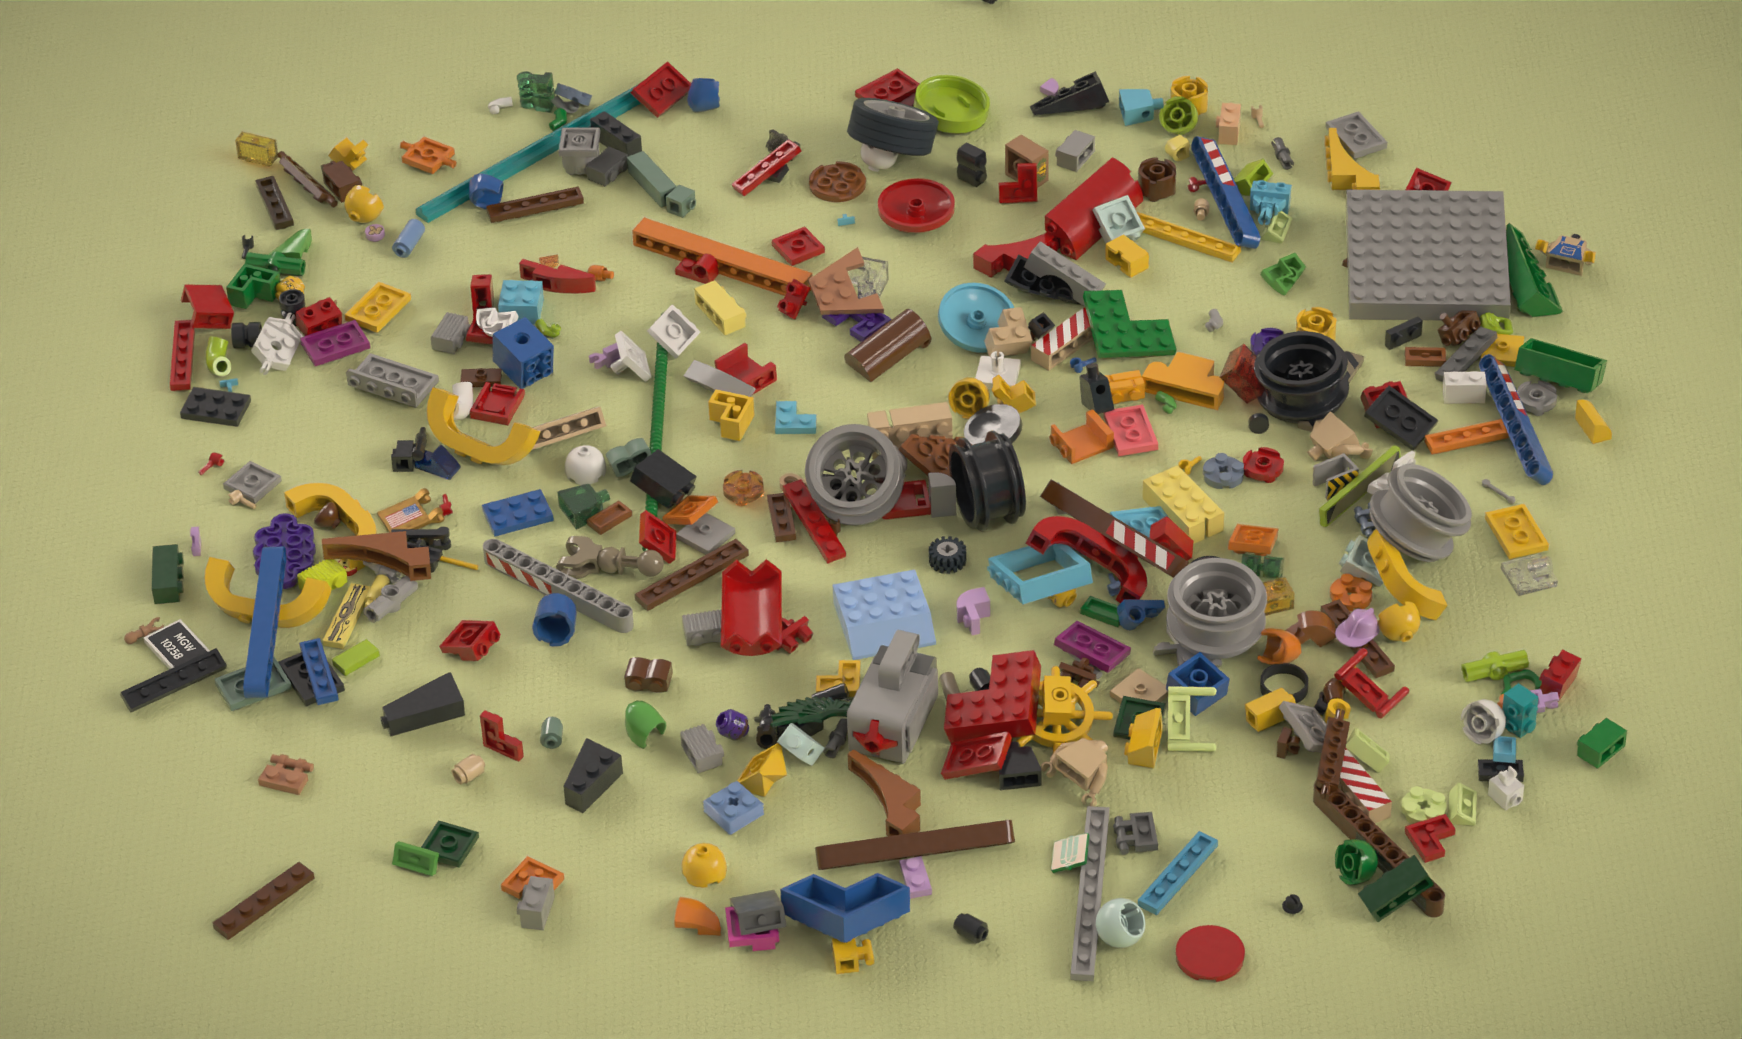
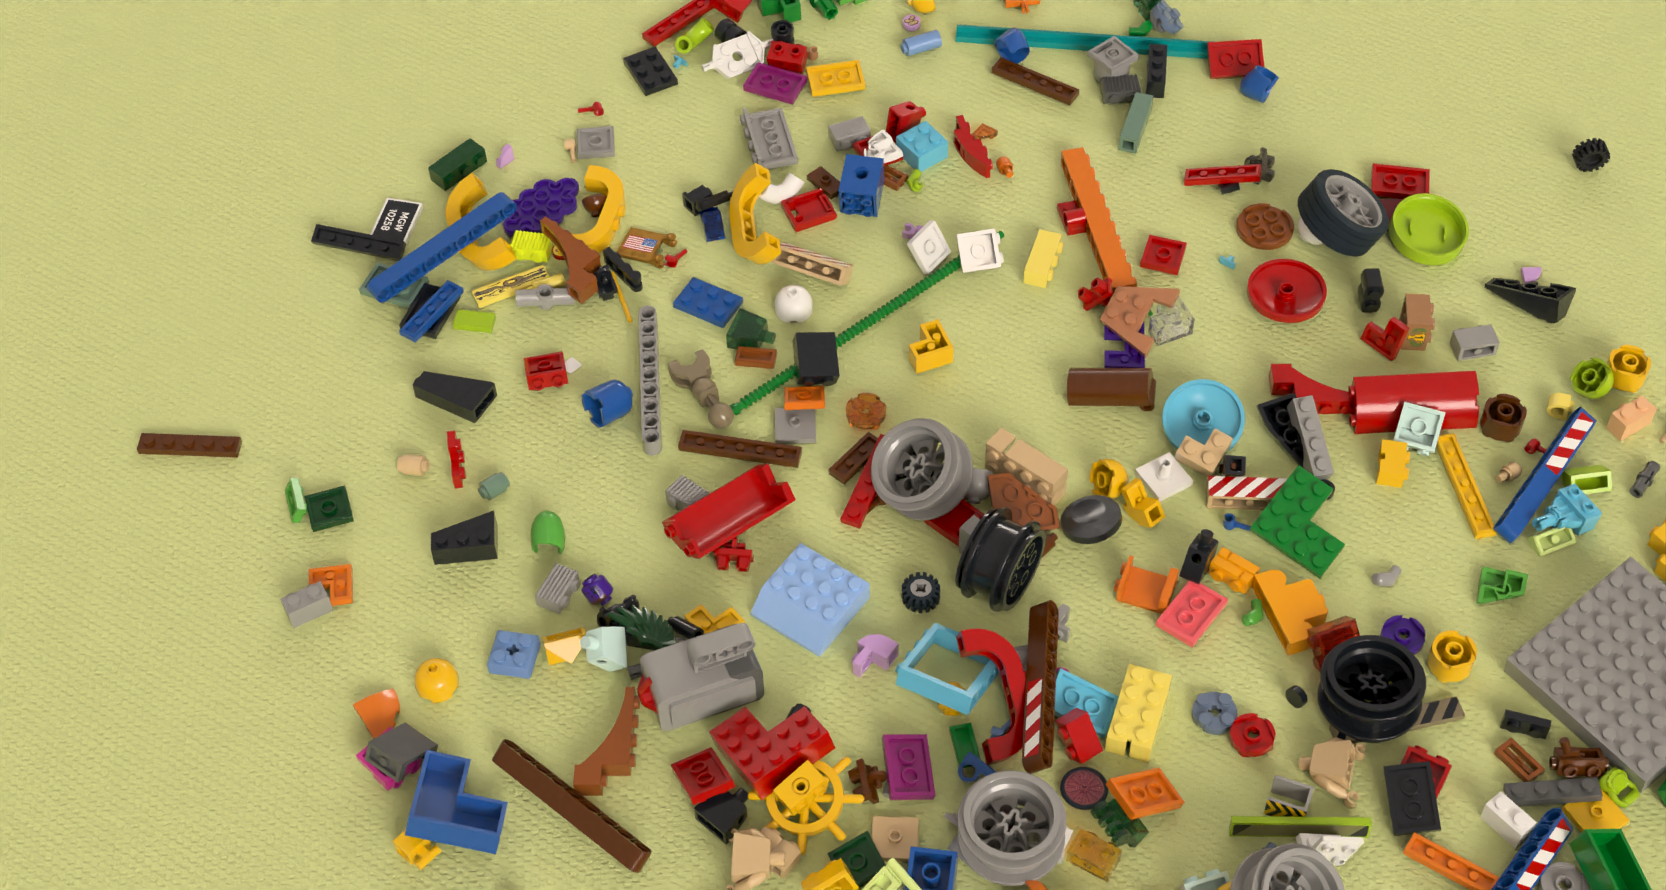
camera: 50 degrees right, 10 degrees up
(143, 631) = (394, 193): medium nougat piece -> none
(283, 779) = (317, 367): nougat plate -> none
(289, 283) = (802, 22): yellow head -> none
(625, 458) = (821, 320): sand green brick -> none
(648, 674) = (606, 500): reddish brown brick -> none
(657, 536) = (752, 399): red plate -> none
(680, 201) = (1132, 154): sand green brick -> none
(712, 379) = (958, 316): light grey slope -> none
(745, 369) = (991, 322): red panel -> none
(792, 423) = (969, 388): medium azure plate -> none
(915, 877) = (543, 830): lavender plate -> none
(948, 684) = (771, 704): dark tan cylinder -> none
(1138, 105) = (1576, 343): medium azure torso -> none
(1186, 464) = (1196, 682): yellow hand -> none

